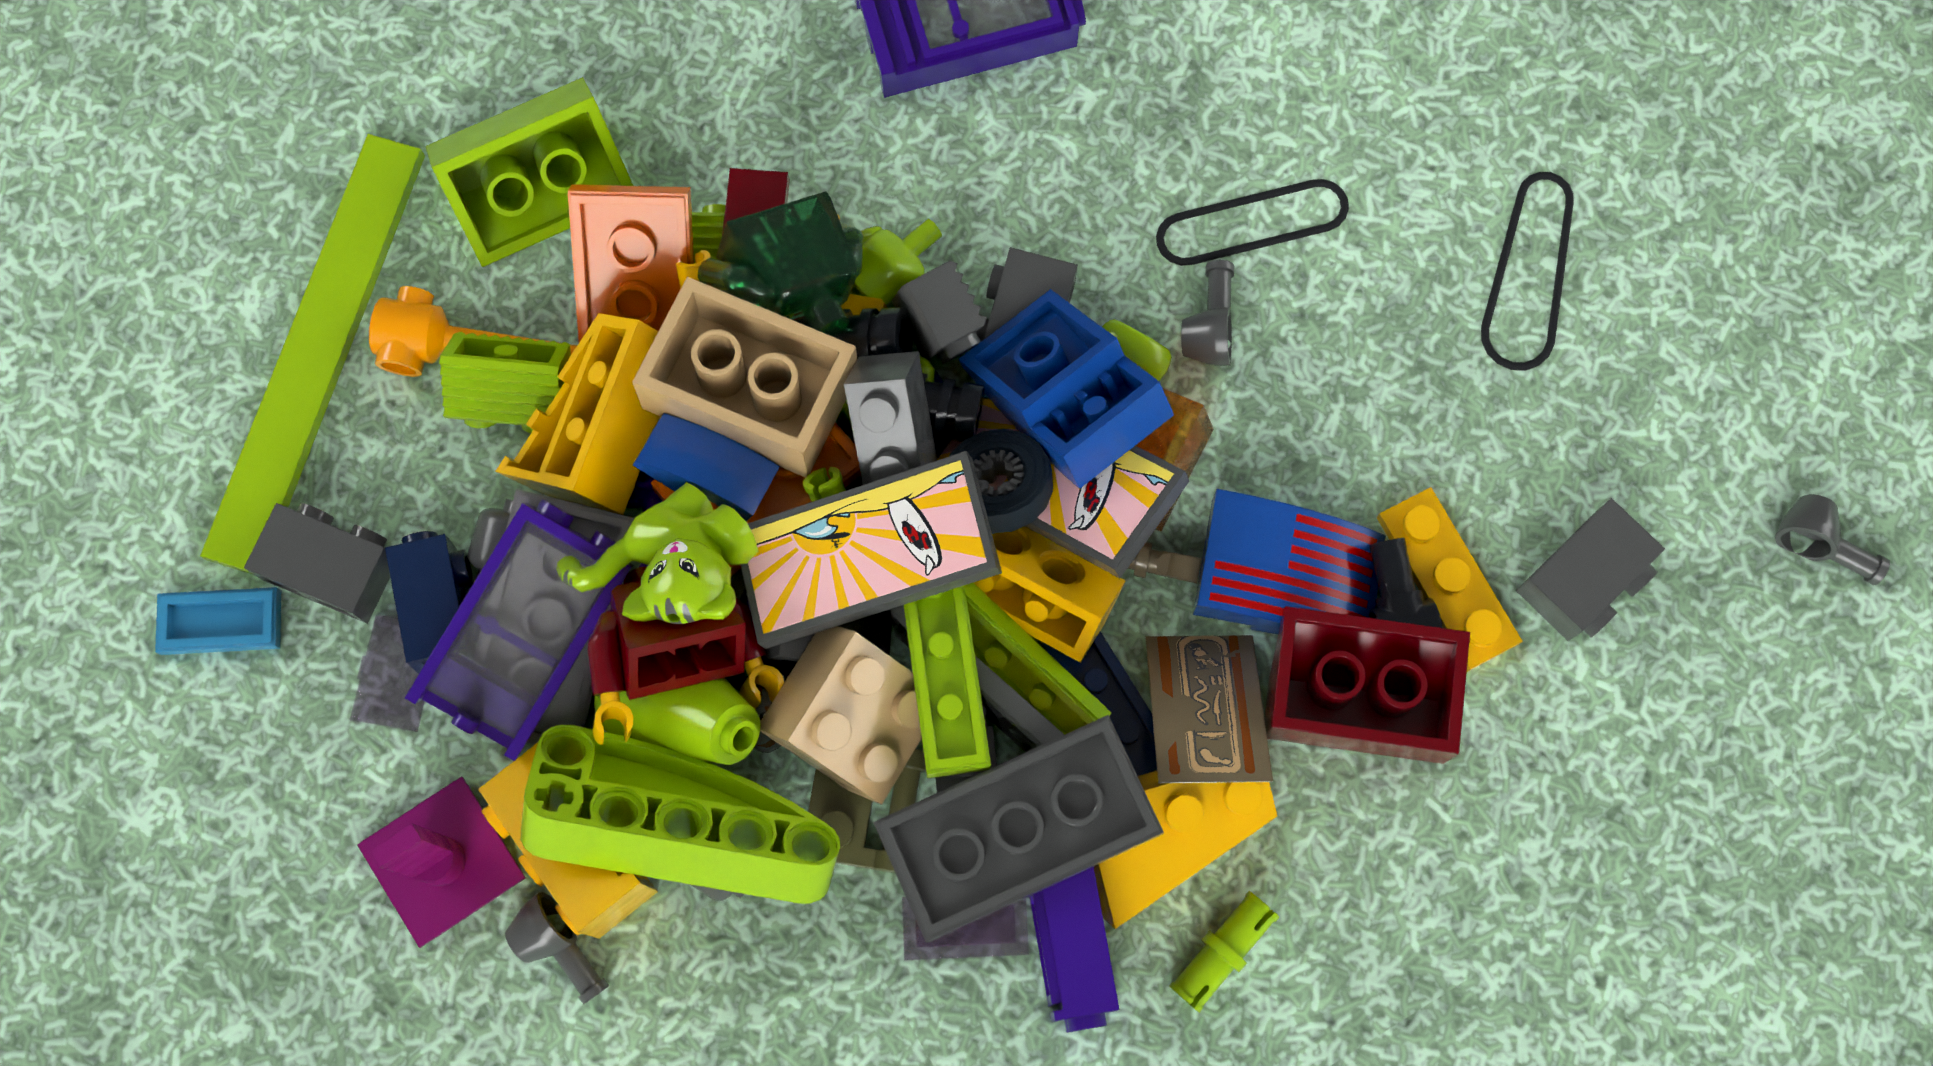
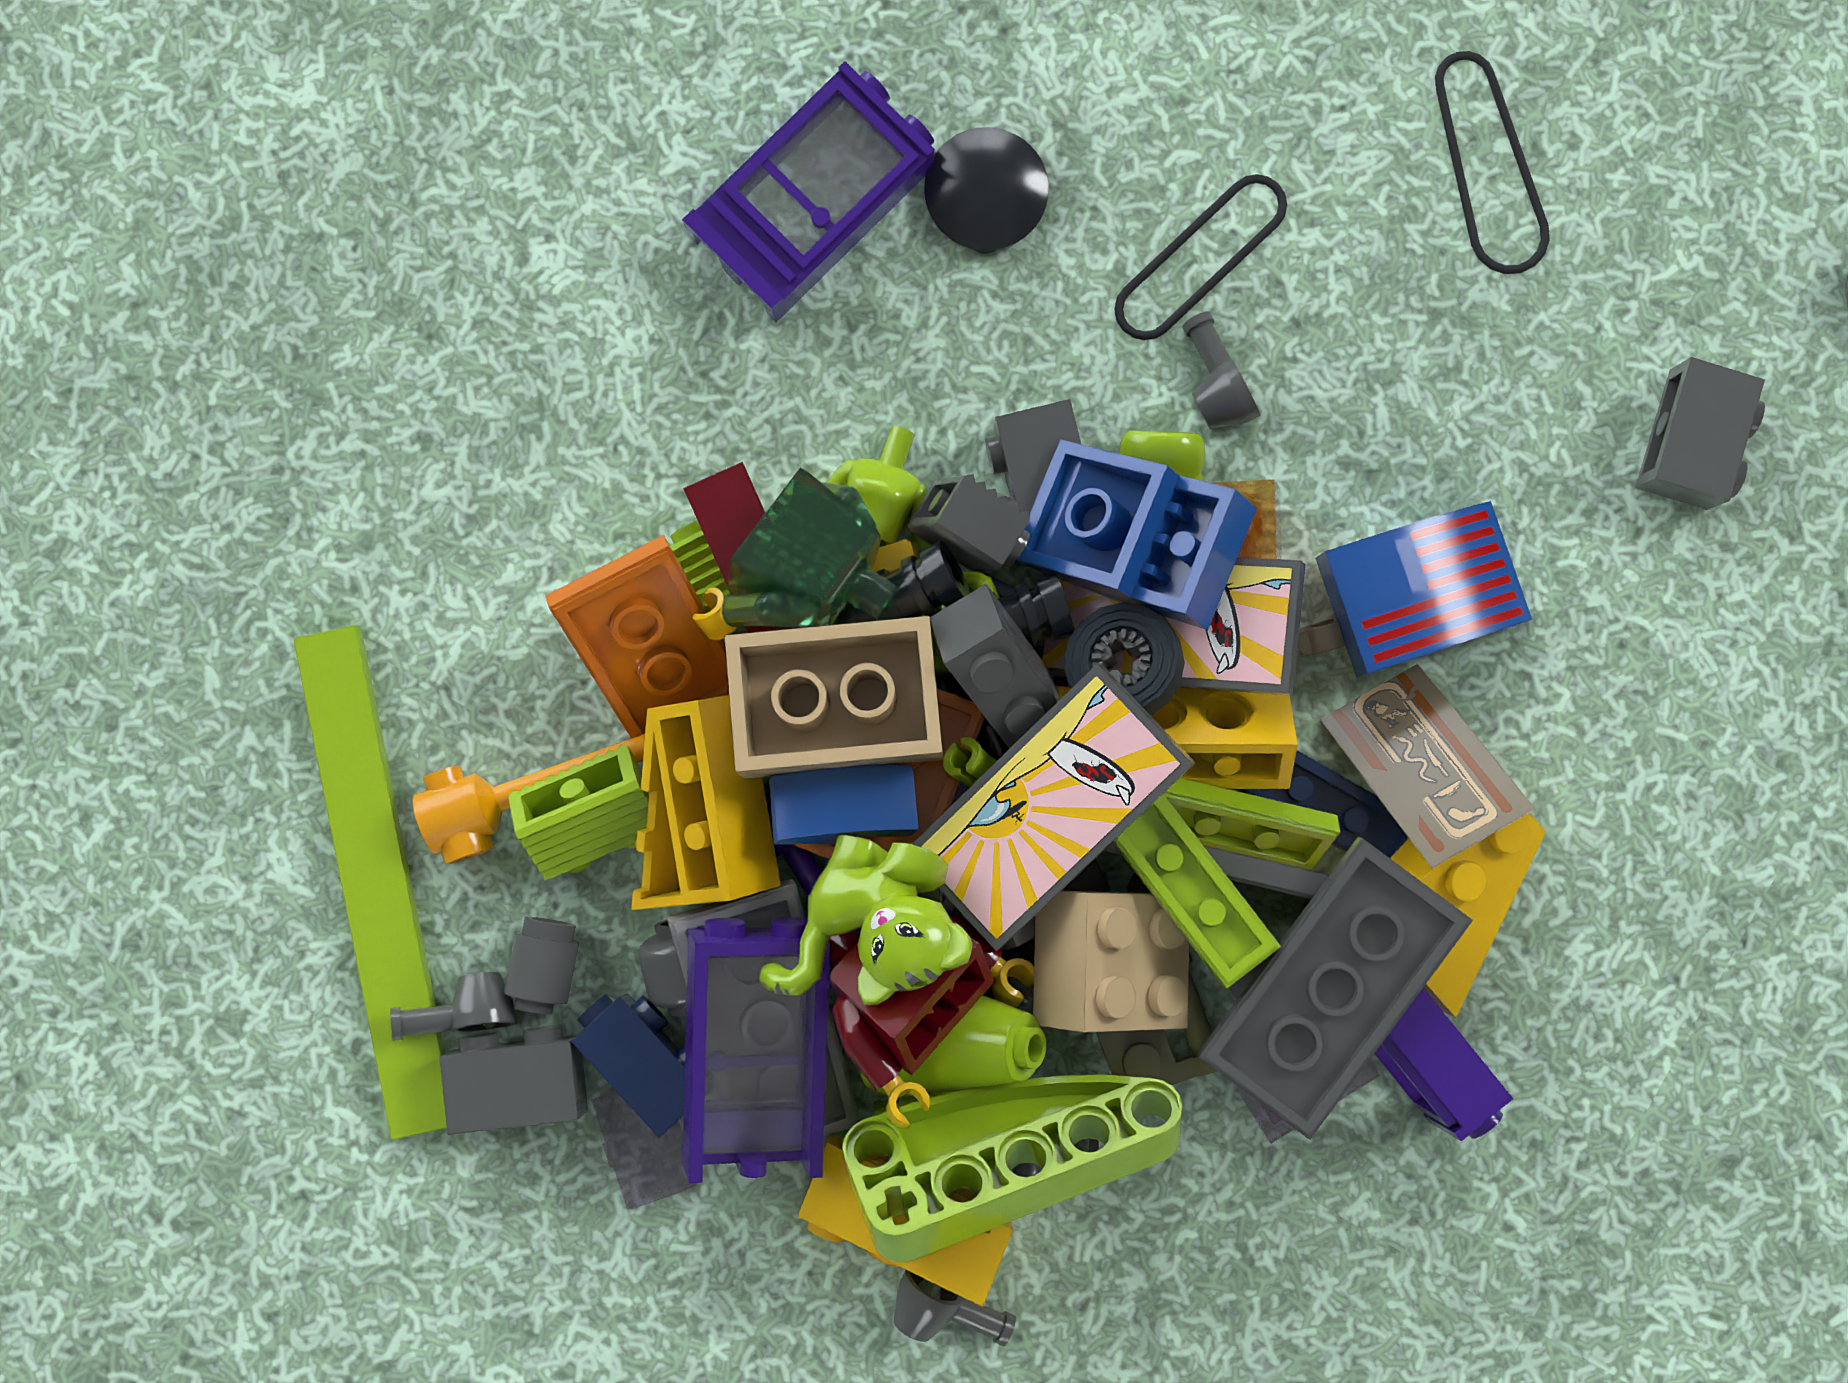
camera: 30 degrees left, 10 degrees up
(218, 621) = (446, 1189): dark azure tile -> none
(334, 481) = (476, 1002): none -> dark grey bar
(401, 482) = (541, 965): none -> dark grey brick
(441, 862) = (793, 1293): magenta piece -> none
(516, 168) = (477, 589): lime slope -> none
(1107, 81) = (986, 189): none -> black dish
(1224, 951) = (1552, 975): lime pin -> none
(1367, 685) = (1561, 661): dark red slope -> none
(1398, 596) = (1551, 572): black pin -> none
(1450, 576) = (1571, 511): yellow plate -> none

